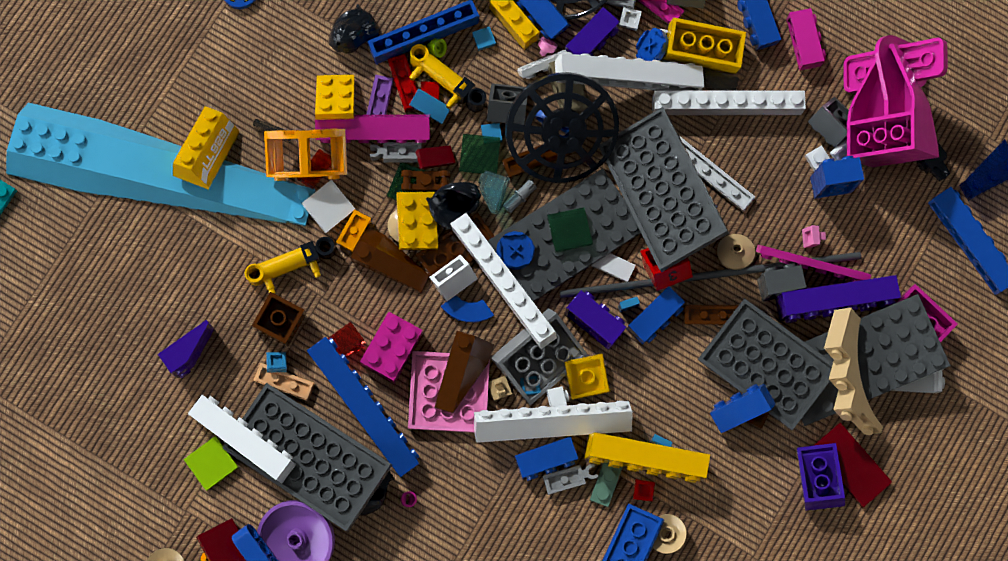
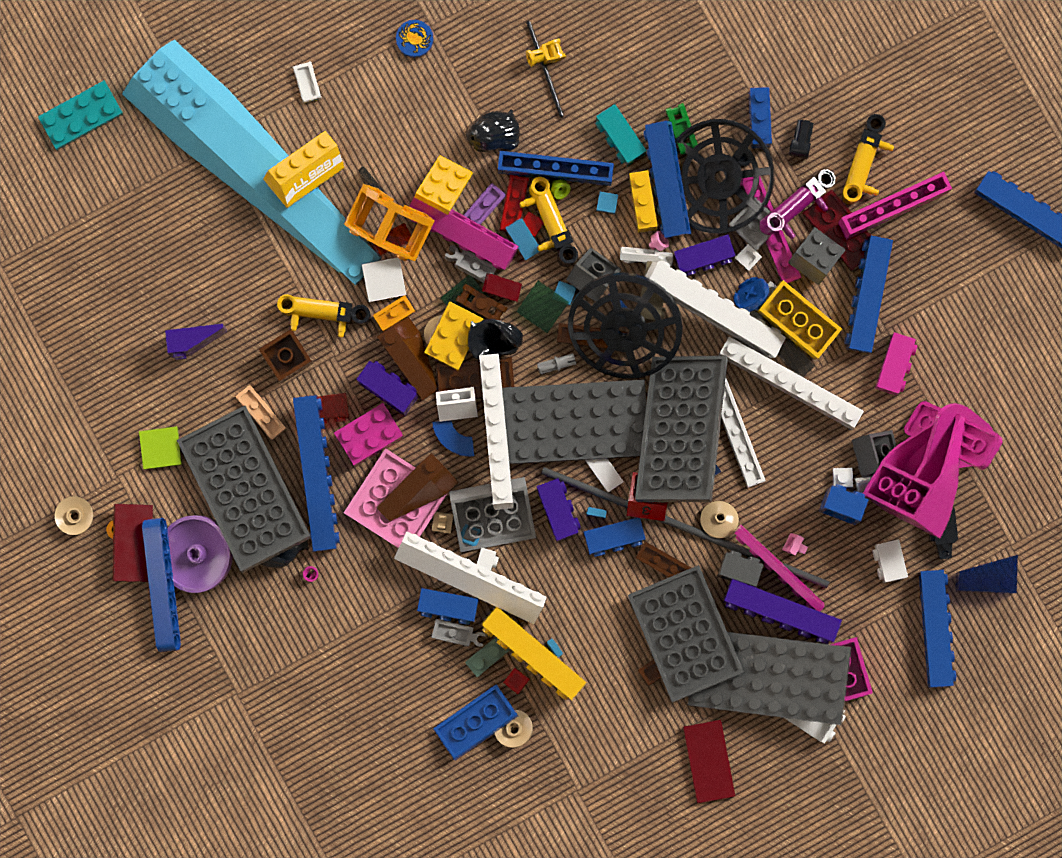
camera: 35 degrees right, 5 degrees up
(166, 76) = (307, 82): none -> white tile
(242, 439) = (197, 442): white brick -> none
(276, 362) = (263, 391): dark azure tile -> none
(385, 296) = (388, 387): none -> dark purple brick
(493, 189) = (536, 345): clear light blue slope -> none
(515, 250) = (523, 410): blue tile -> none
(569, 229) = (581, 418): clear green tile -> none
(587, 376) = (523, 555): yellow tile -> none
(742, 407) = (640, 658): blue brick -> none
(821, 477) = (674, 756): dark purple slope -> none
(845, 374) = (743, 680): tan arch -> none
(901, 205) = (890, 561): none -> white brick

